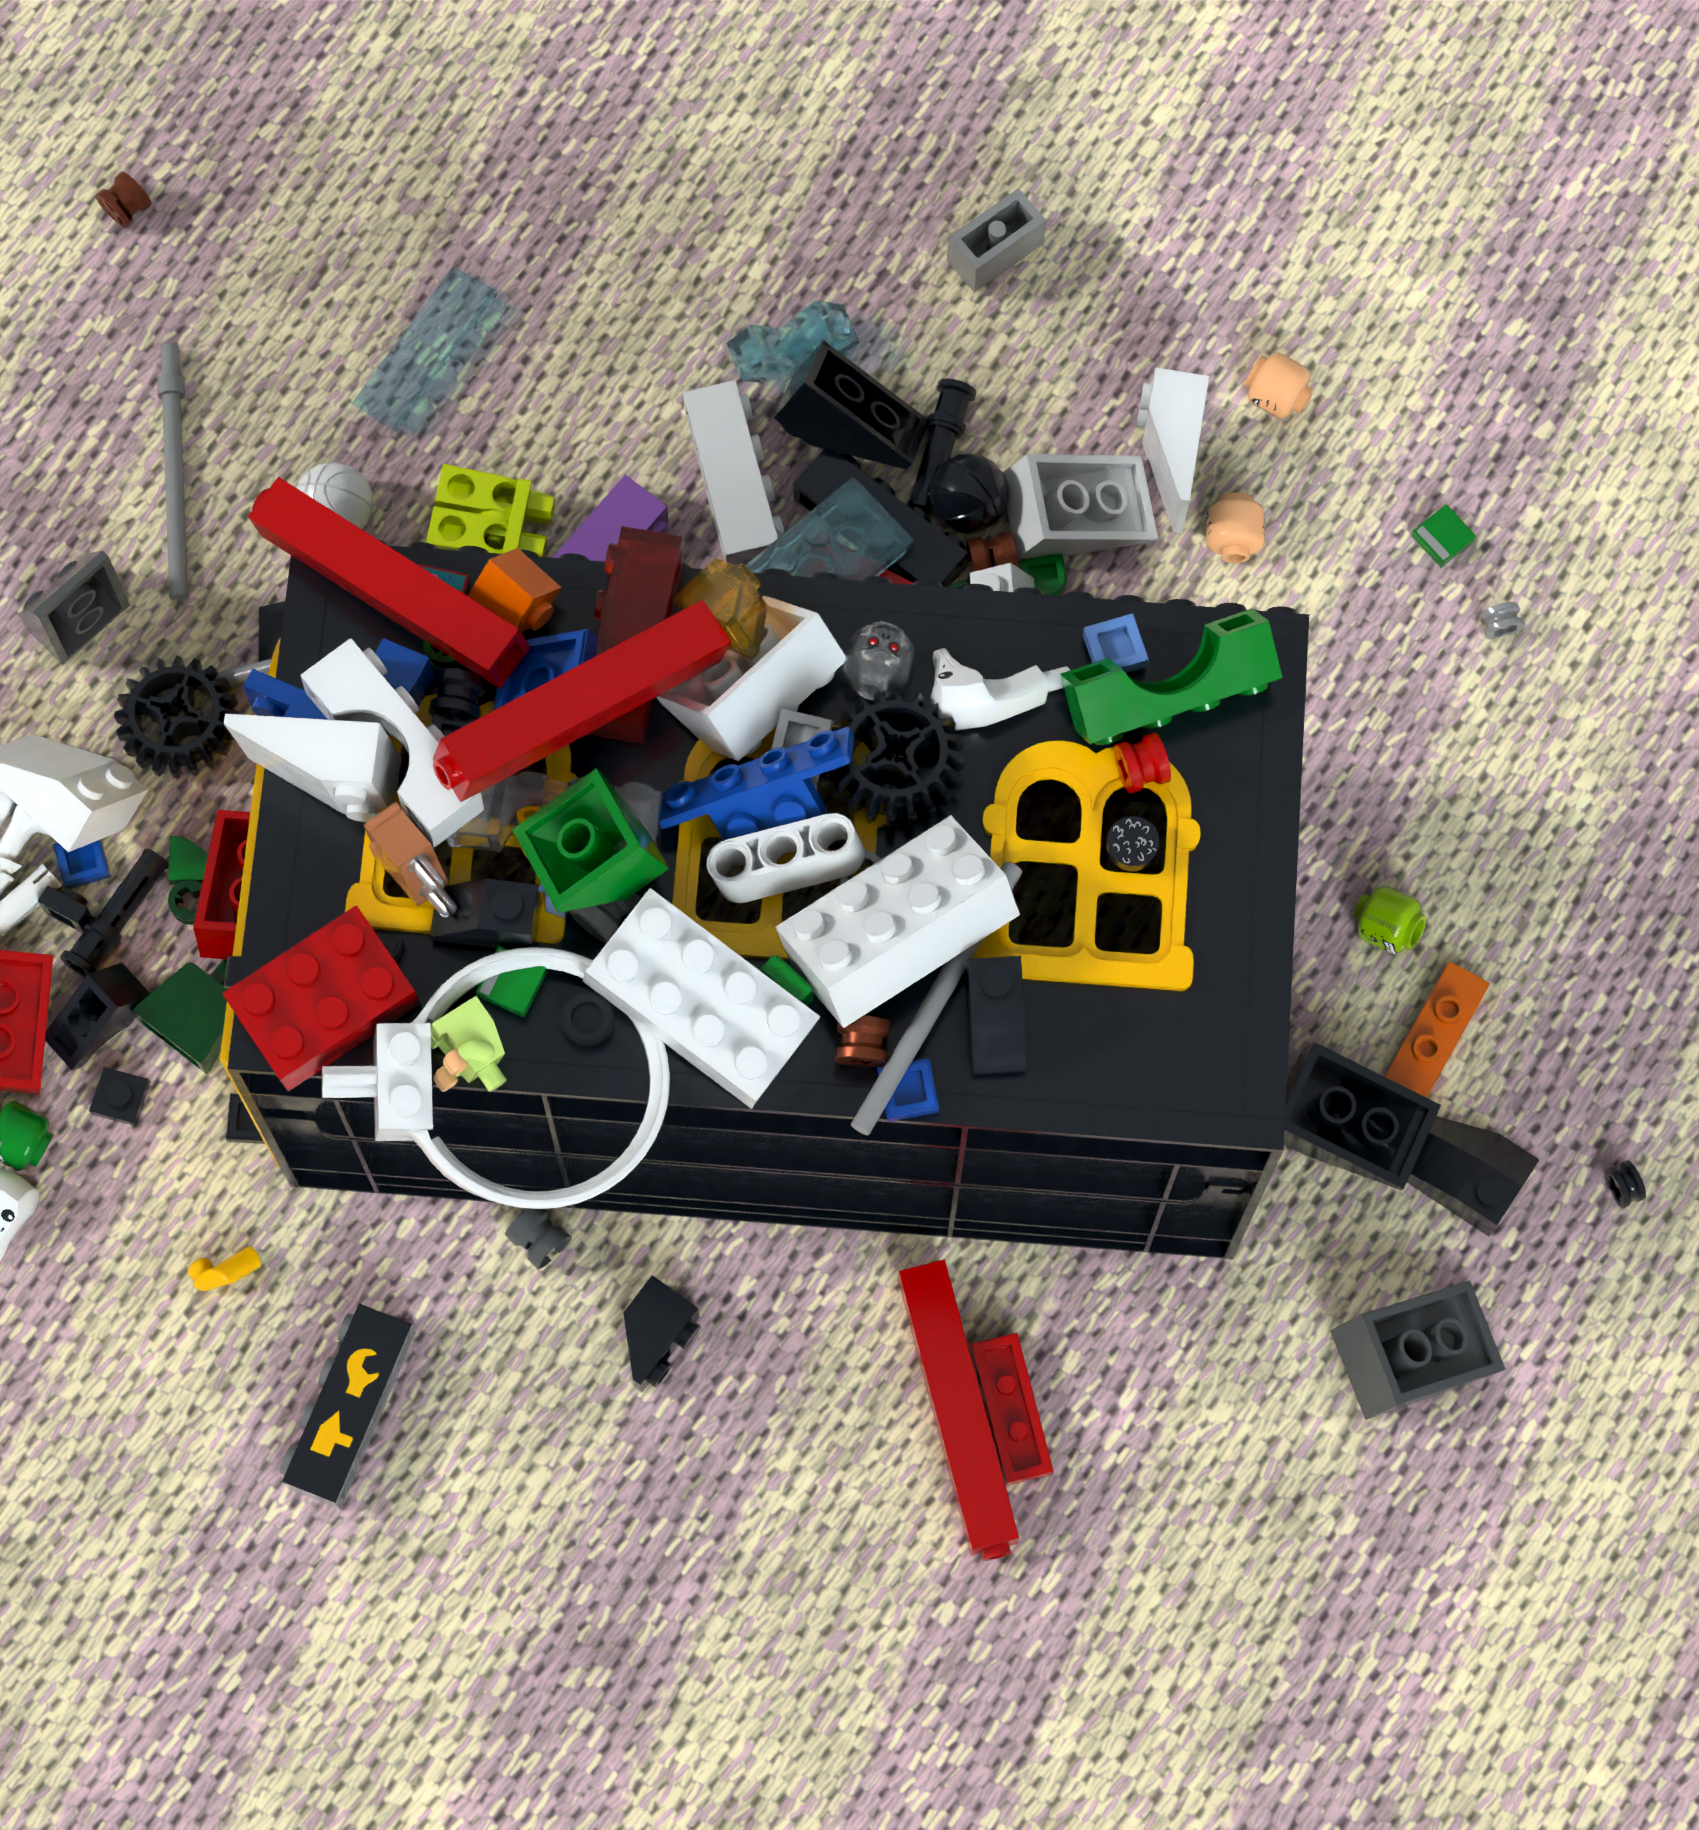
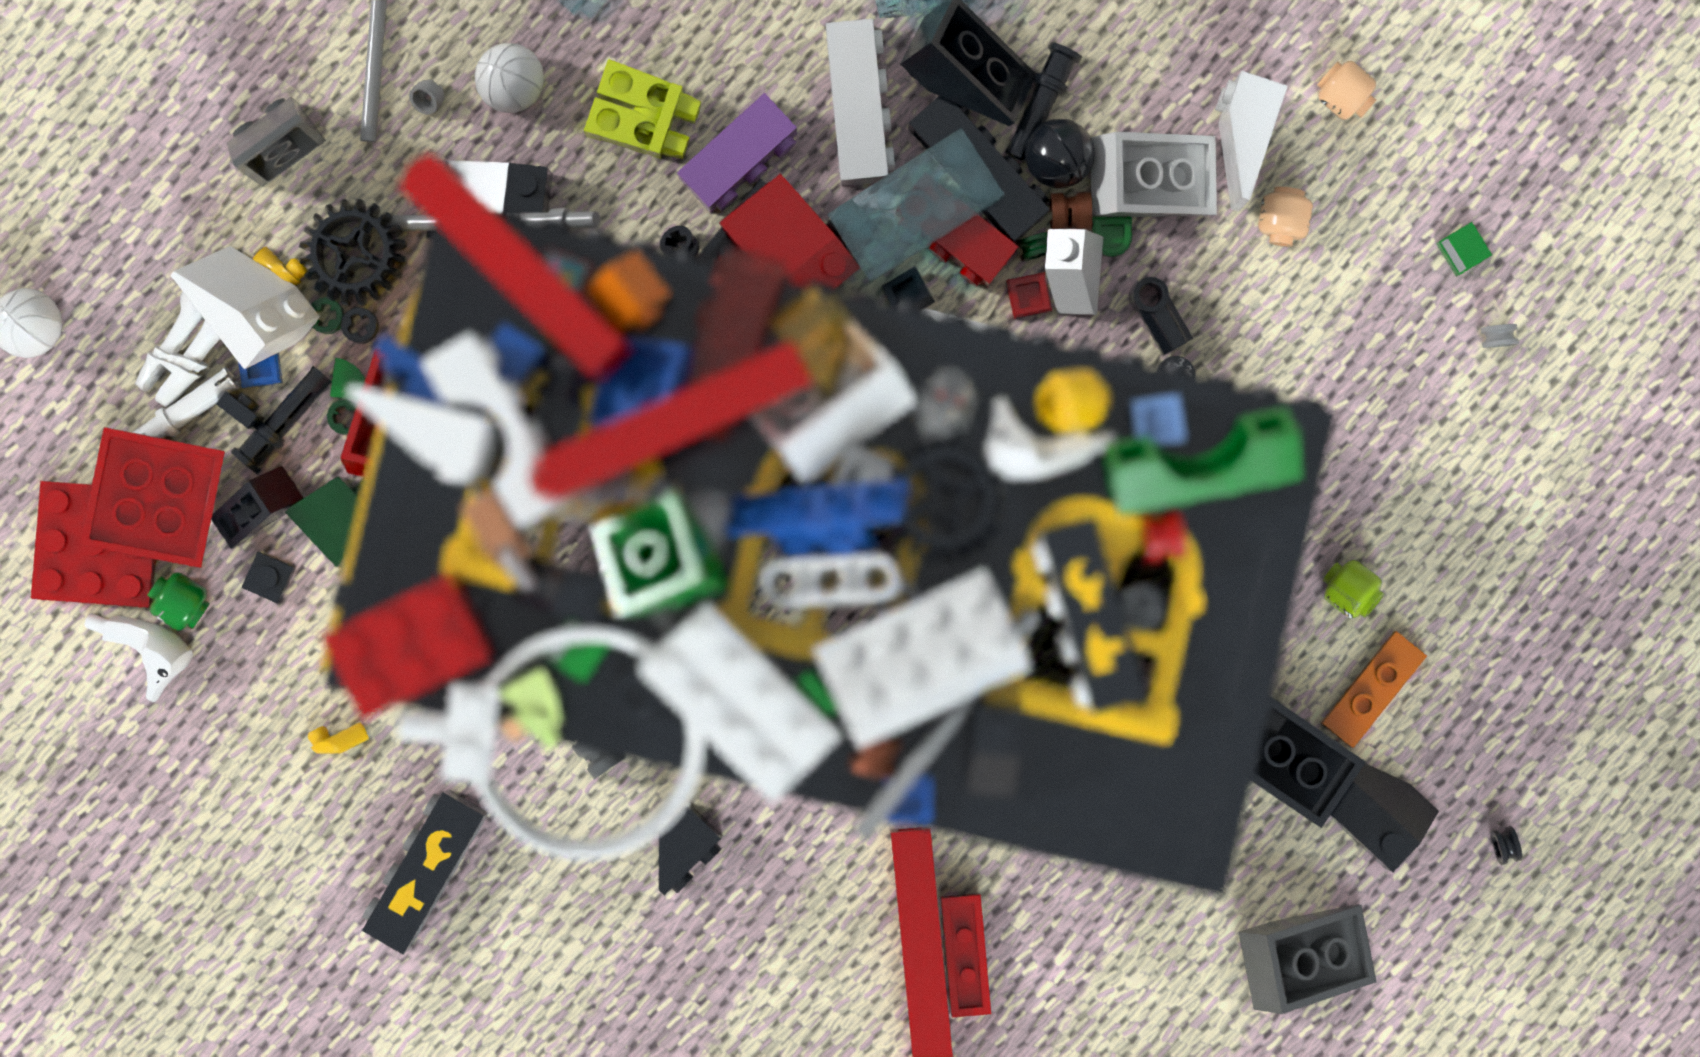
camera: 10 degrees right, 15 degrees up
(109, 746) = (291, 272): none -> yellow arm
(164, 800) = (334, 324): none -> dark green bush
(208, 797) = (348, 322): none -> black bush
(231, 535) = (419, 92): none -> light grey hinge
(1019, 636) = (1073, 400): none -> yellow head
(1077, 856) = (1090, 616): none -> black brick

